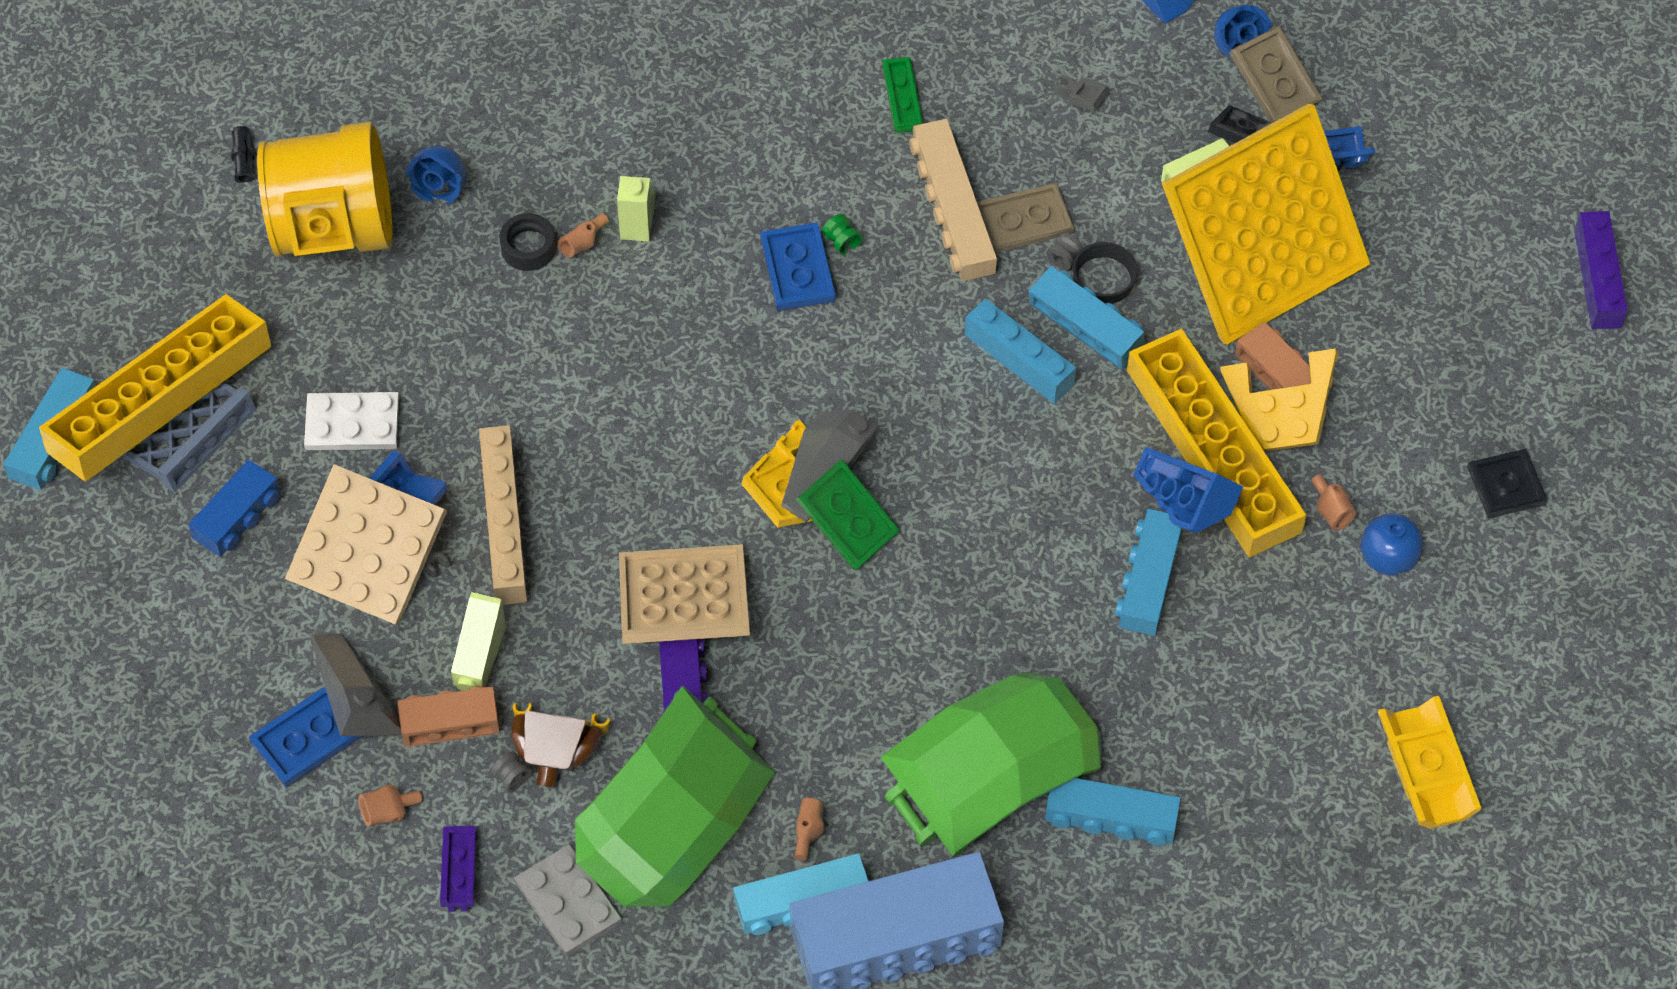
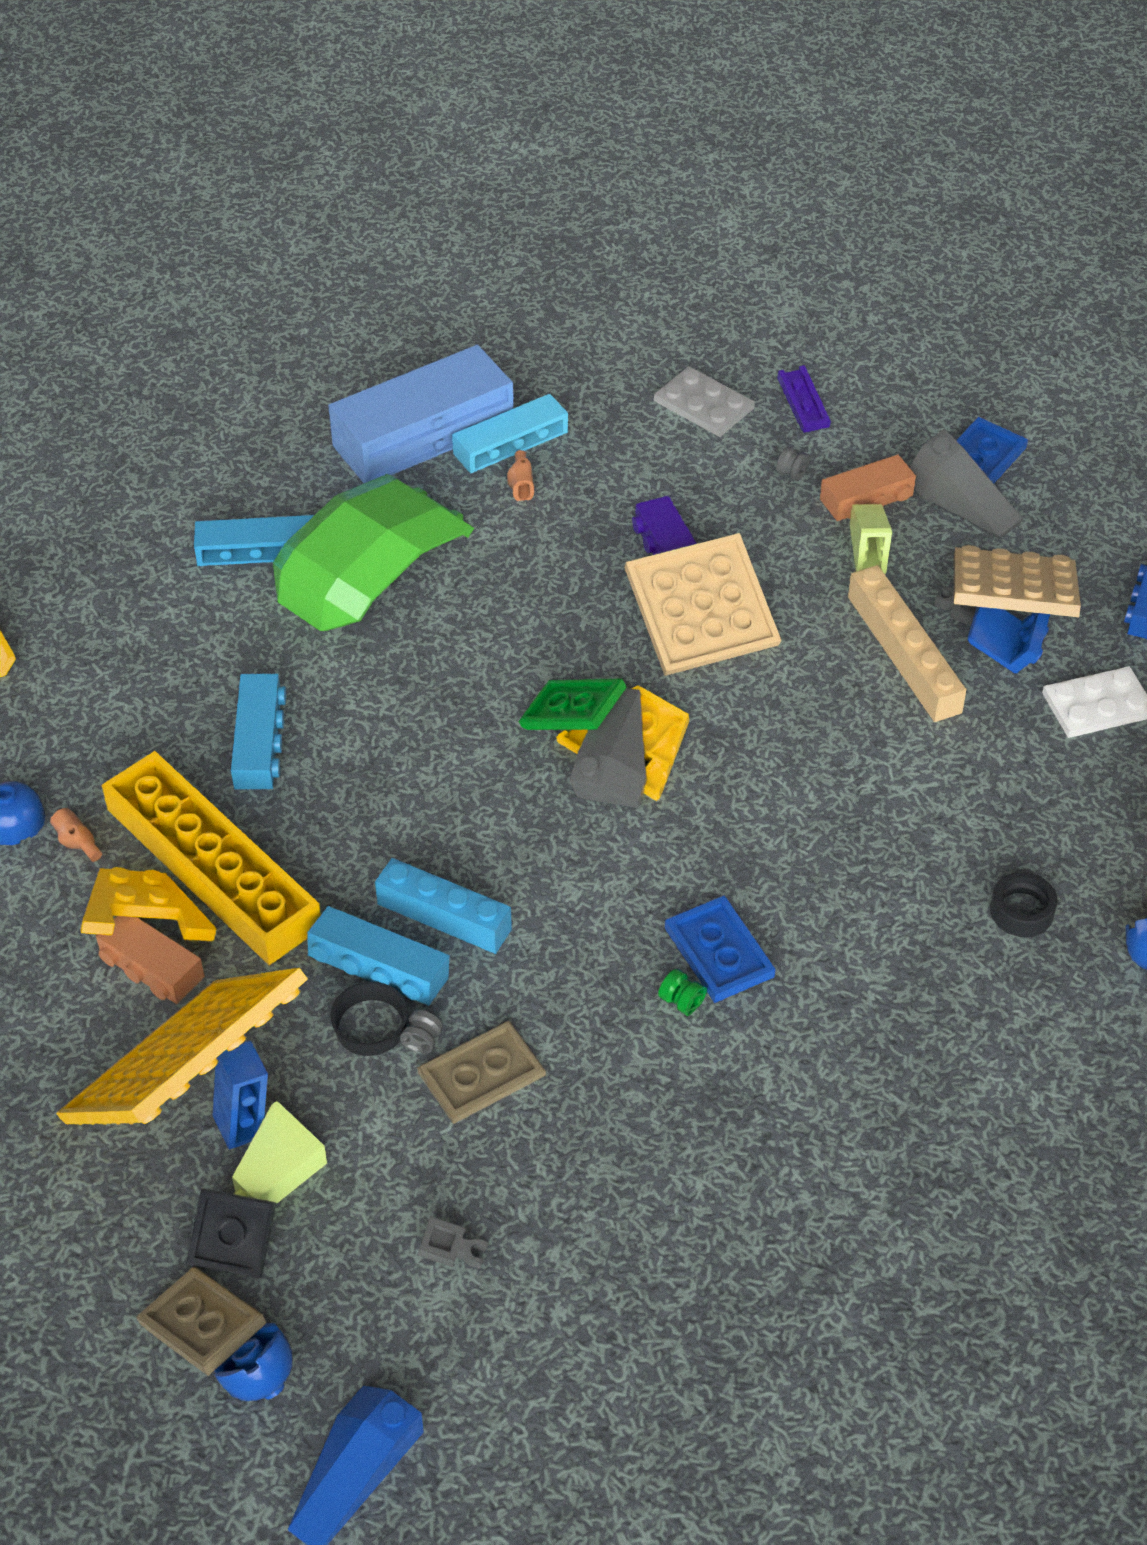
camera: 165 degrees right, 10 degrees down
(386, 805) = (885, 422): nougat piece -> none
(554, 741) = (768, 482): torso -> none
(582, 236) = (969, 920): nougat piece -> none
(635, 208) = (924, 950): yellowish green slope -> none
(671, 805) = (633, 453): bright green windscreen -> none
(902, 94) = (675, 1193): green tile -> none
(953, 199) = (570, 1063): tan brick -> none
(1186, 492) = (217, 772): blue wedge -> none
(1348, 147) = (104, 1222): blue bracket -> none

